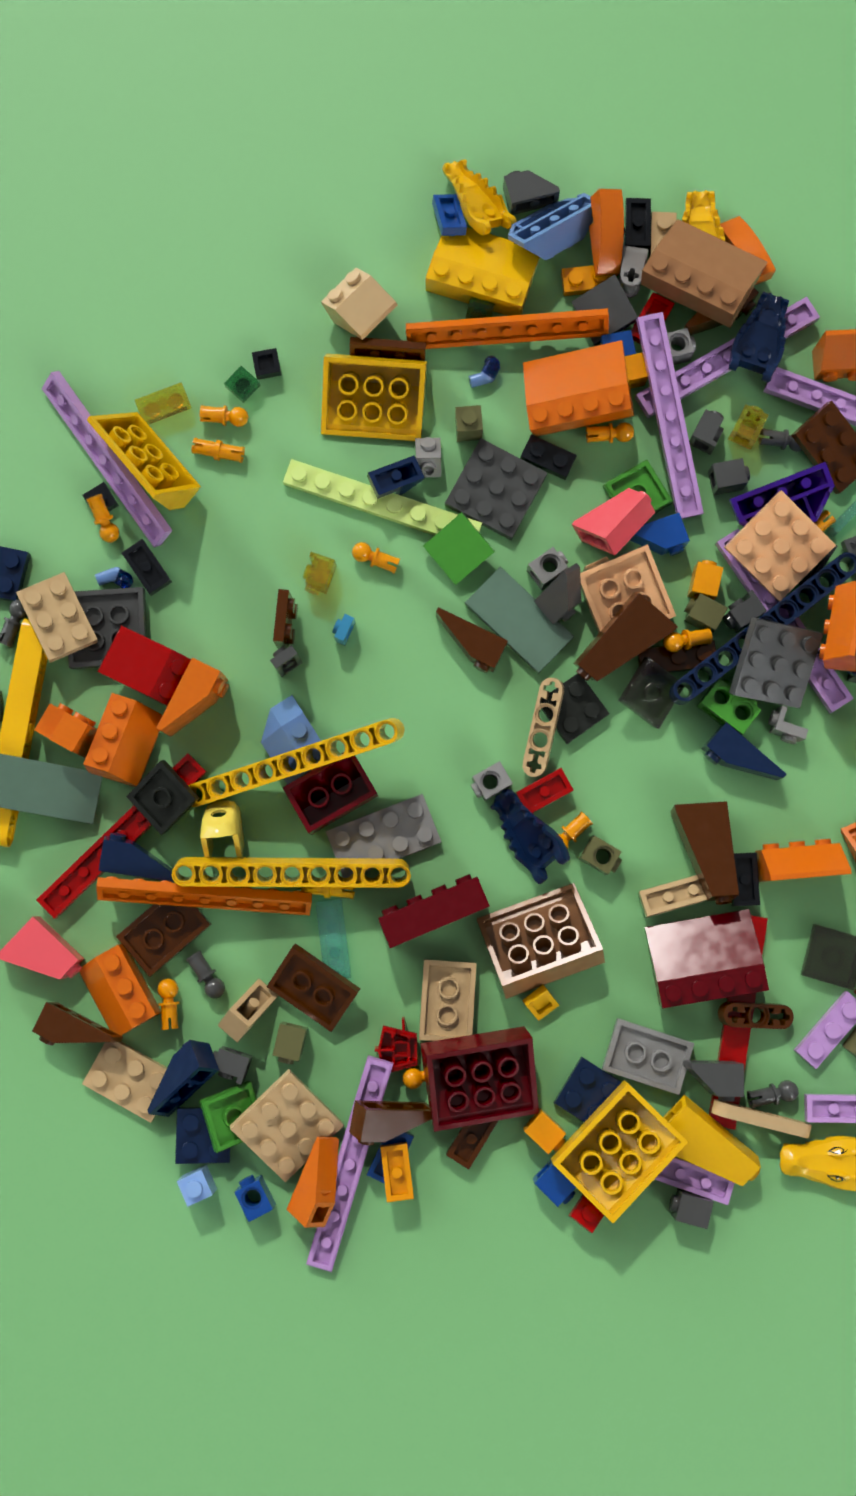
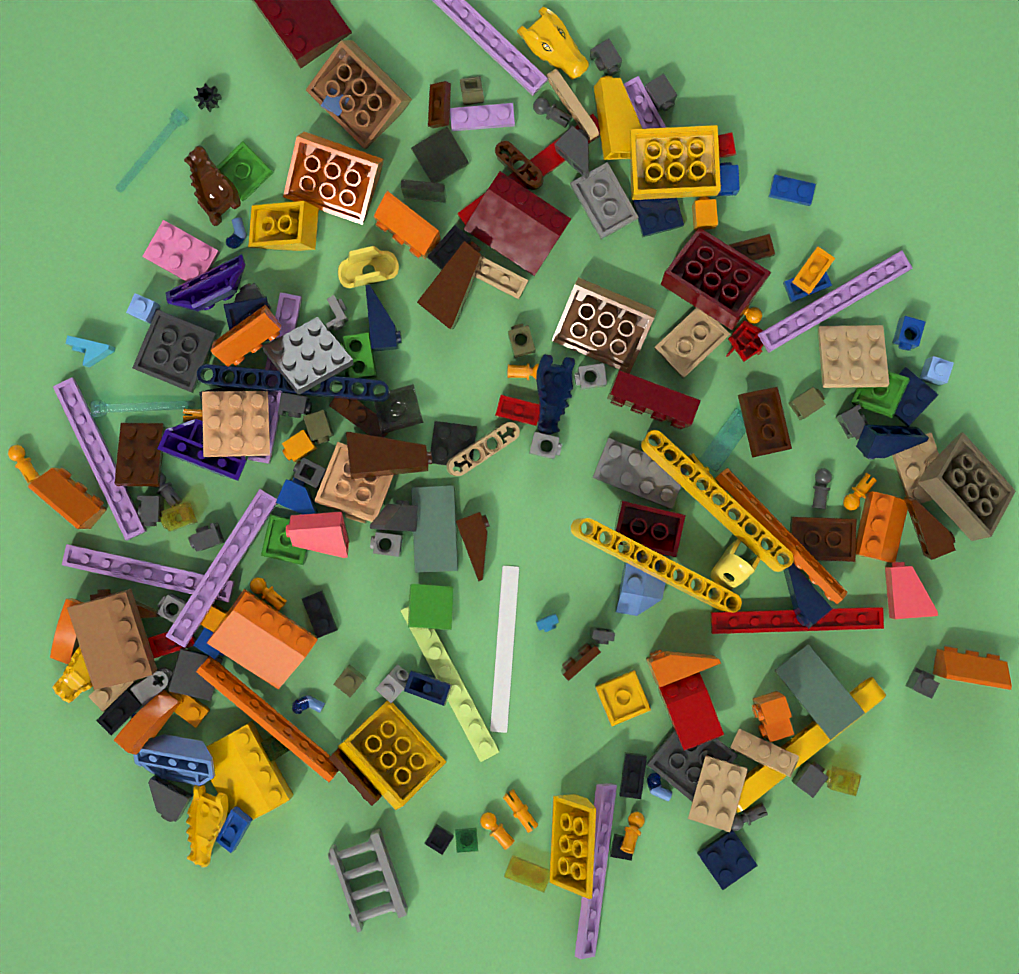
camera: 140 degrees left, 5 degrees up
(46, 690) = (764, 752): none -> tan plate
(70, 1100) = (968, 488): none -> dark tan slope
(123, 741) = (744, 676): orange slope -> none
(162, 797) = (753, 619): pearl dark grey plate -> none
(217, 626) = (623, 698): none -> yellow tile
(247, 1010) = (815, 444): tan slope -> none
(274, 291) = (389, 884): none -> light grey fence
(316, 1187) = (867, 305): orange slope -> none
(319, 574) = (531, 671): clear yellow brick -> none
(358, 303) = (346, 822): tan slope -> none
(360, 575) = (504, 649): none -> white sticker
(362, 552) = (491, 659): light orange pin -> none
(386, 1119) = (792, 304): reddish brown slope -> none
(485, 1232) = (792, 190): none -> blue plate
(496, 489) = (371, 624): dark grey plate -> none
(504, 893) = (598, 370): none -> light grey brick
(540, 1002) = (638, 289): yellow plate -> none
(679, 559) = (301, 472): none -> dark grey brick
(687, 639) = (354, 425): light orange pin -> none
(728, 476) = (221, 497): dark grey brick -> none
(761, 339) = (118, 563): dark blue animal -> none
(771, 1194) = (606, 58): none -> dark grey brick
(779, 410) = (150, 509): none -> dark grey brick
(811, 780) = (351, 270): none -> light yellow piece
(818, 908) = (423, 190): none -> clear smoke tile

